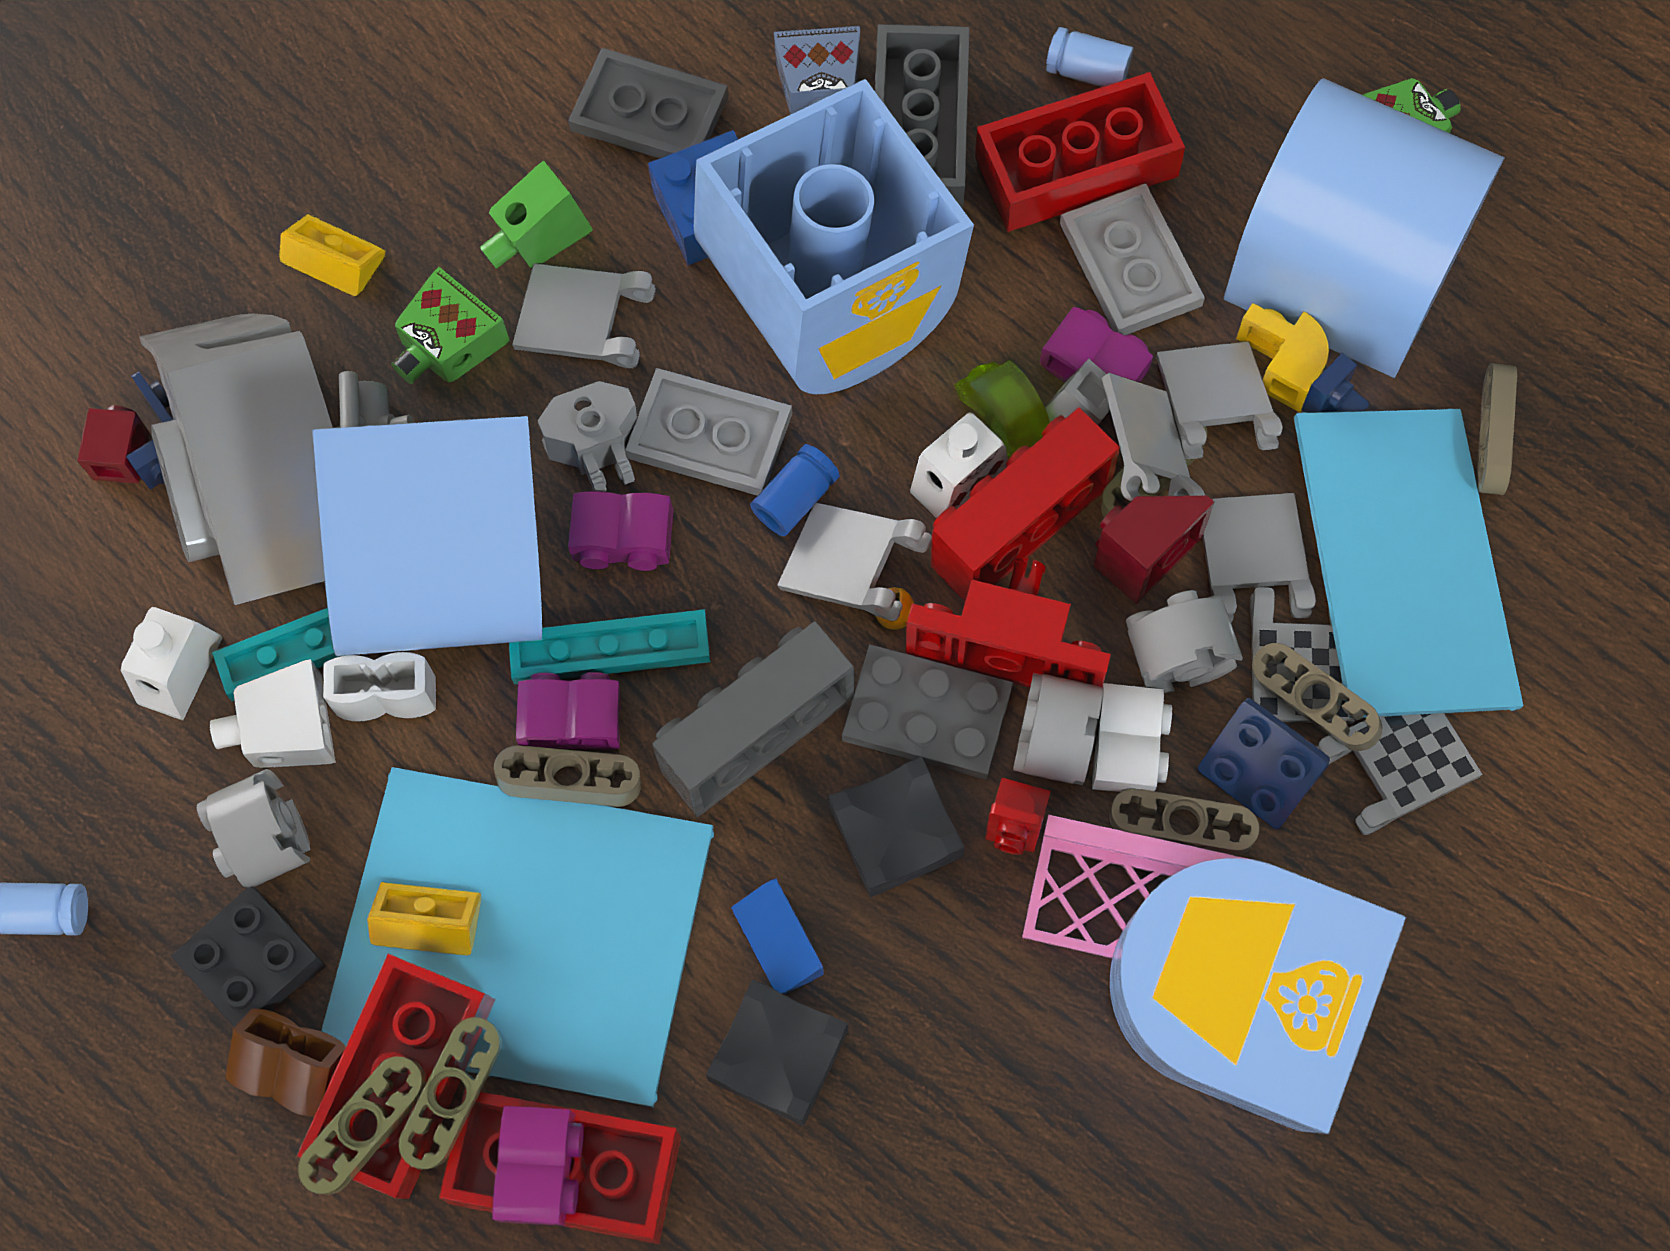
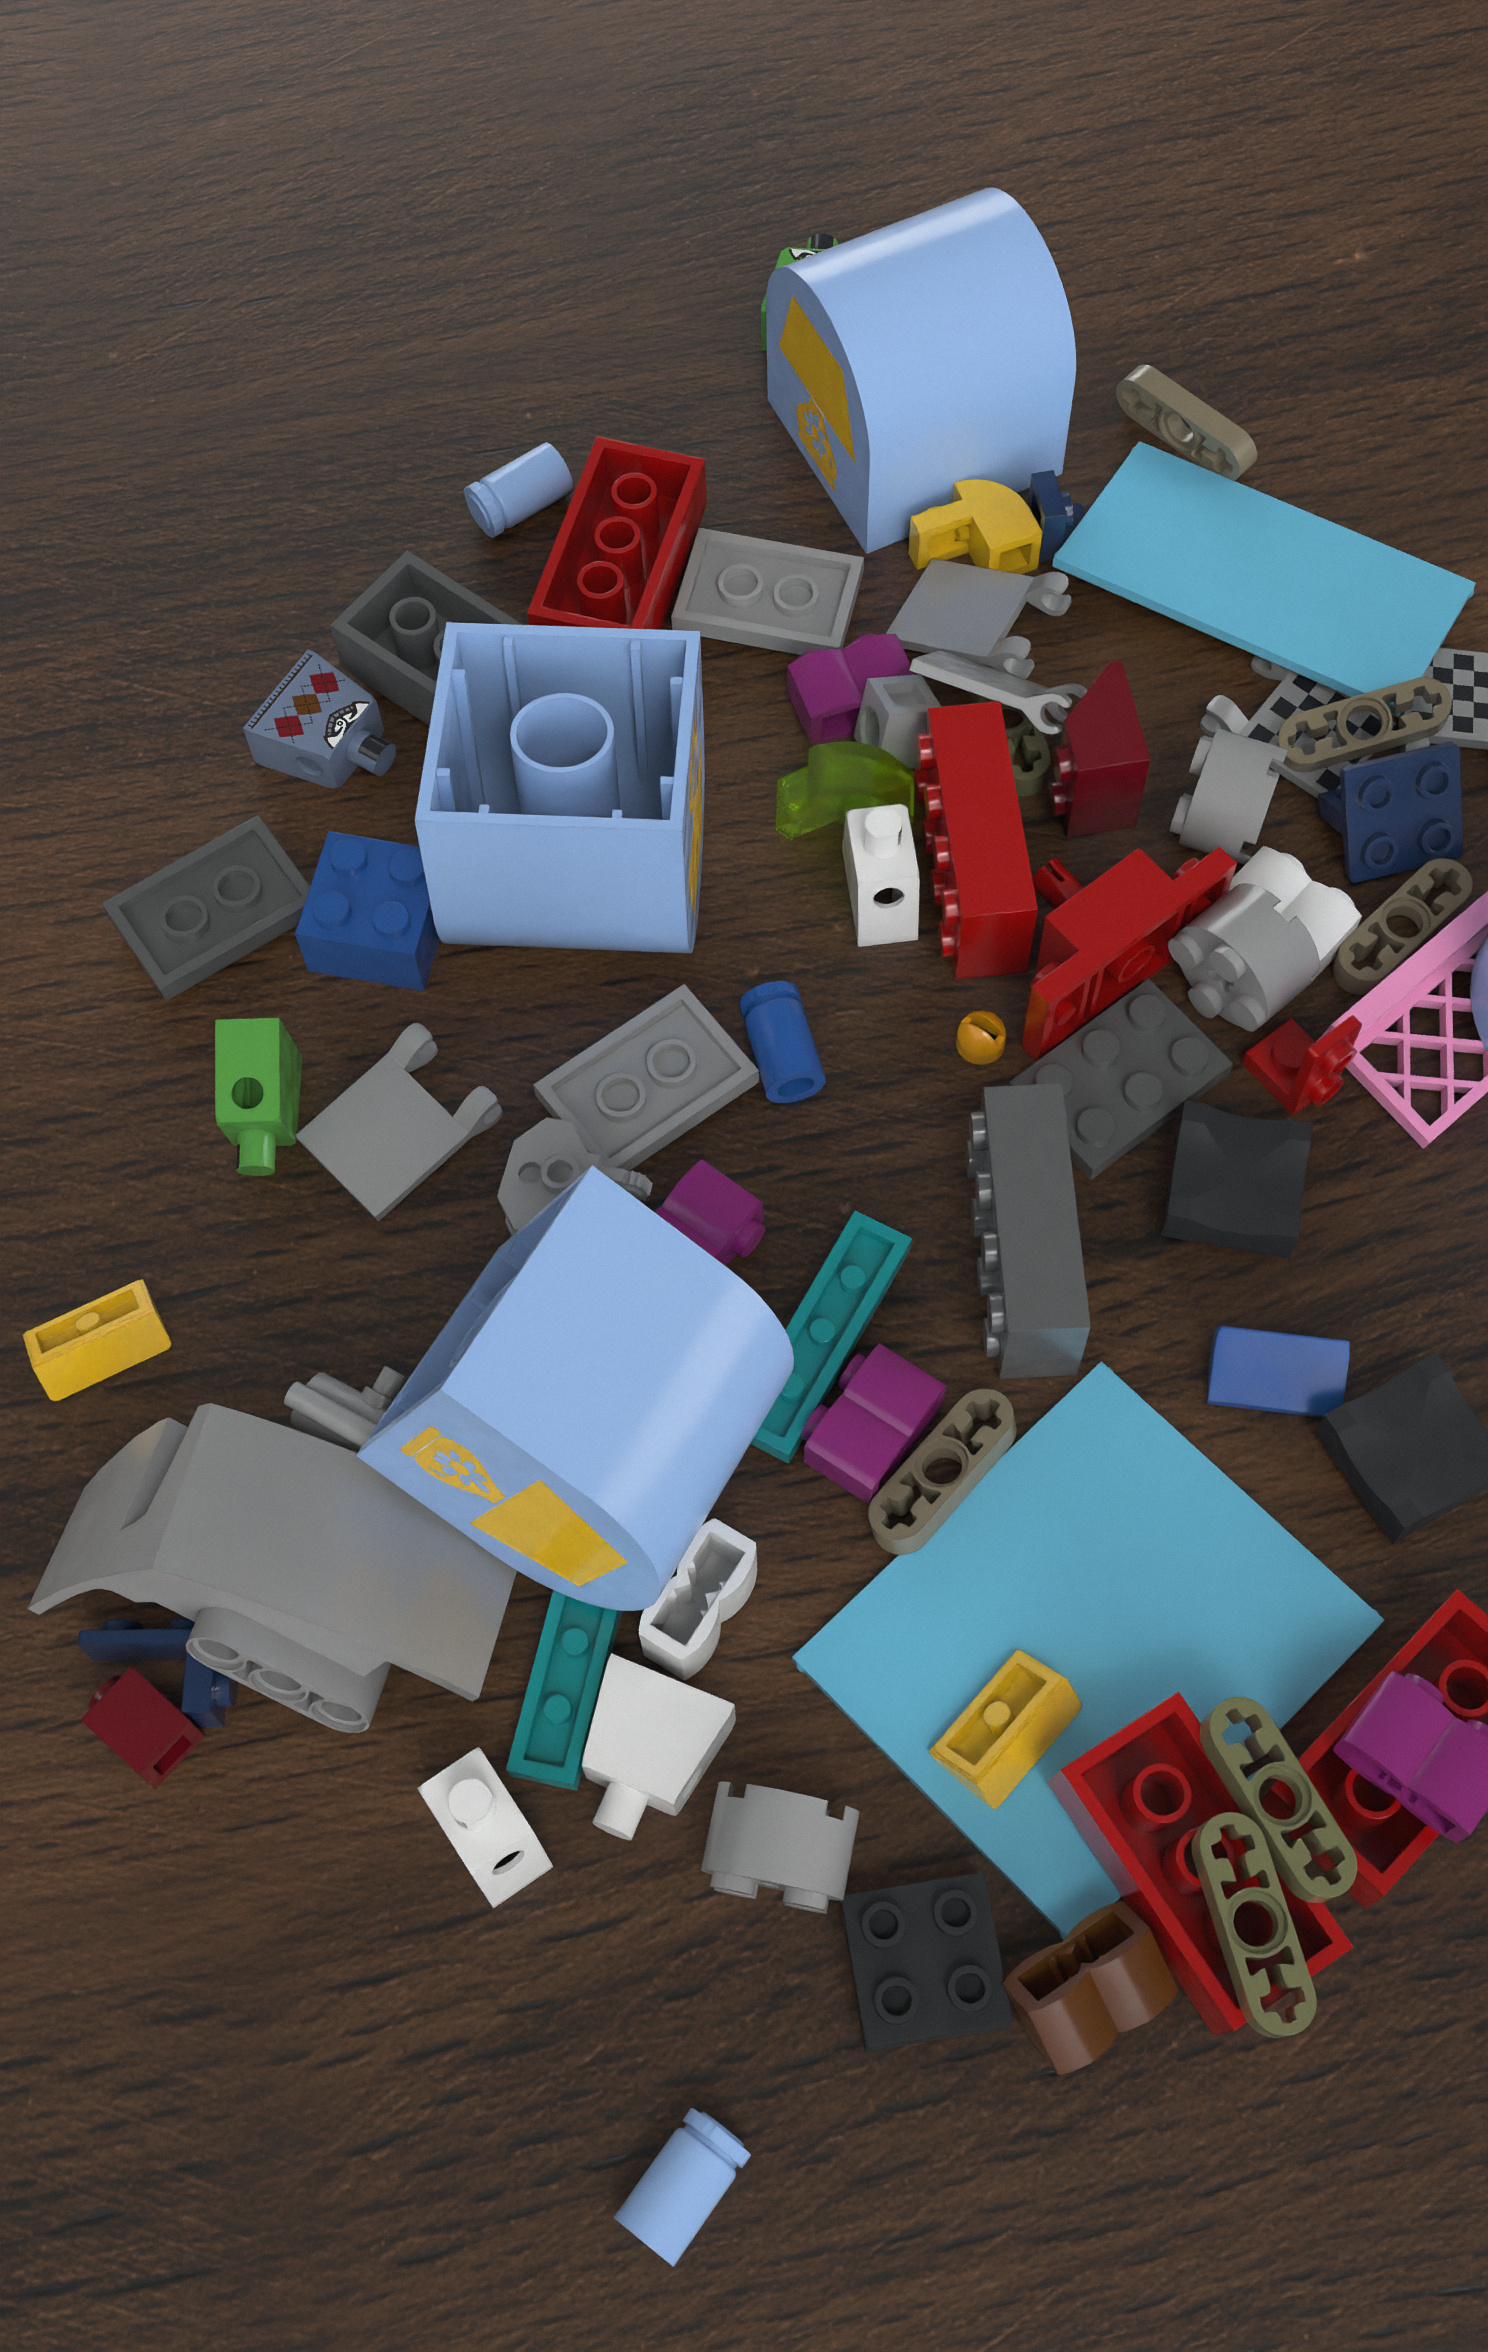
camera: 55 degrees left, 5 degrees down
(446, 331) = (307, 1268): bright green torso -> none
(844, 556) = (895, 1042): flag -> none
(1257, 545) = (1171, 686): light grey flag -> none

